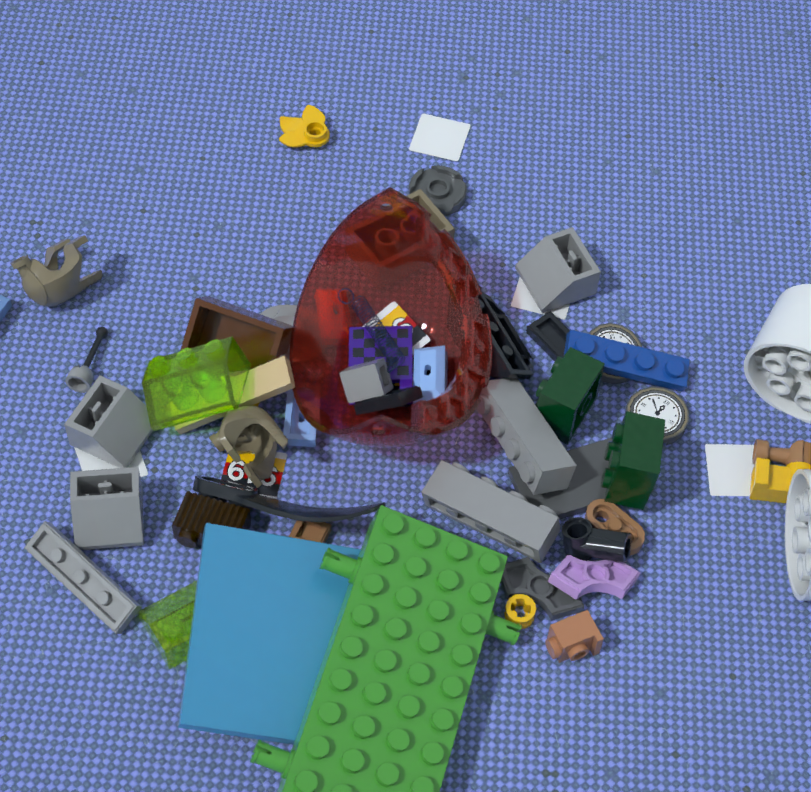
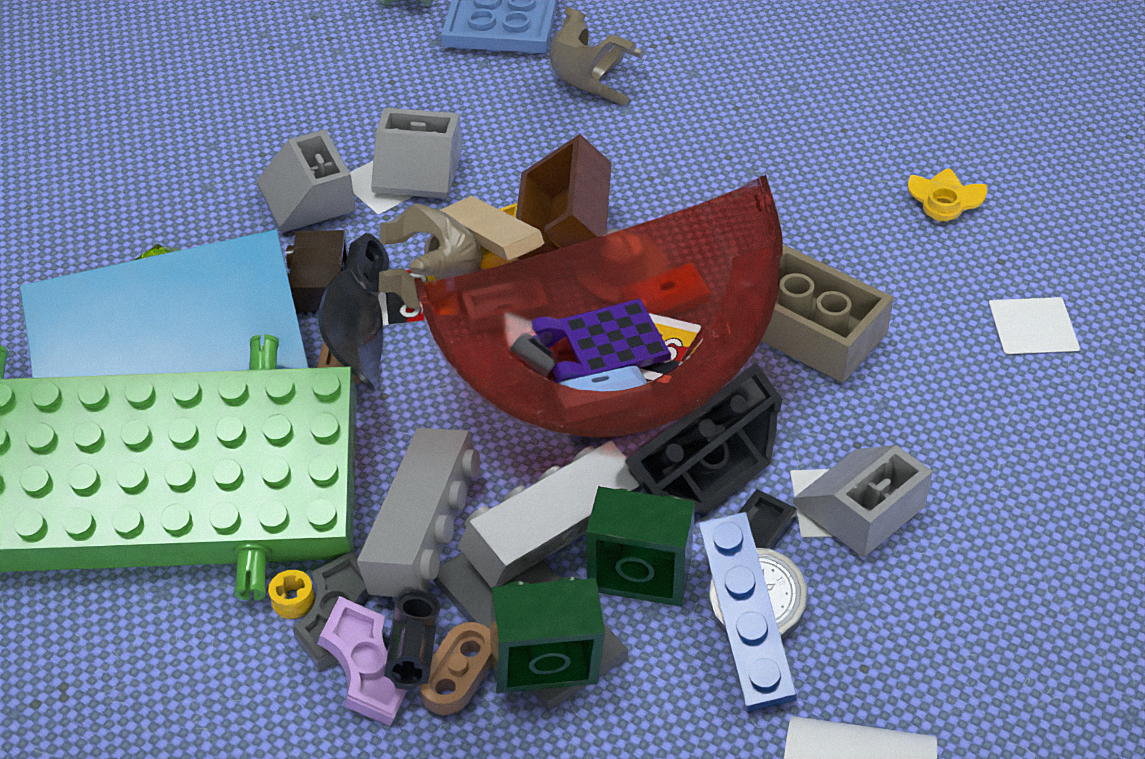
camera: 75 degrees right, 10 degrees down
(81, 377) = (477, 123): light grey hinge -> none
(83, 577) = (220, 197): light grey tile -> none
(195, 383) = (483, 183): clear neon green slope -> none
(366, 380) = (556, 326): light grey panel -> none
(391, 362) = (592, 338): dark blue piece -> none
(442, 187) = (935, 344): dark grey tile -> none
(574, 638) = (260, 658): nougat brick -> none
(662, 404) = (679, 682): tile -> none

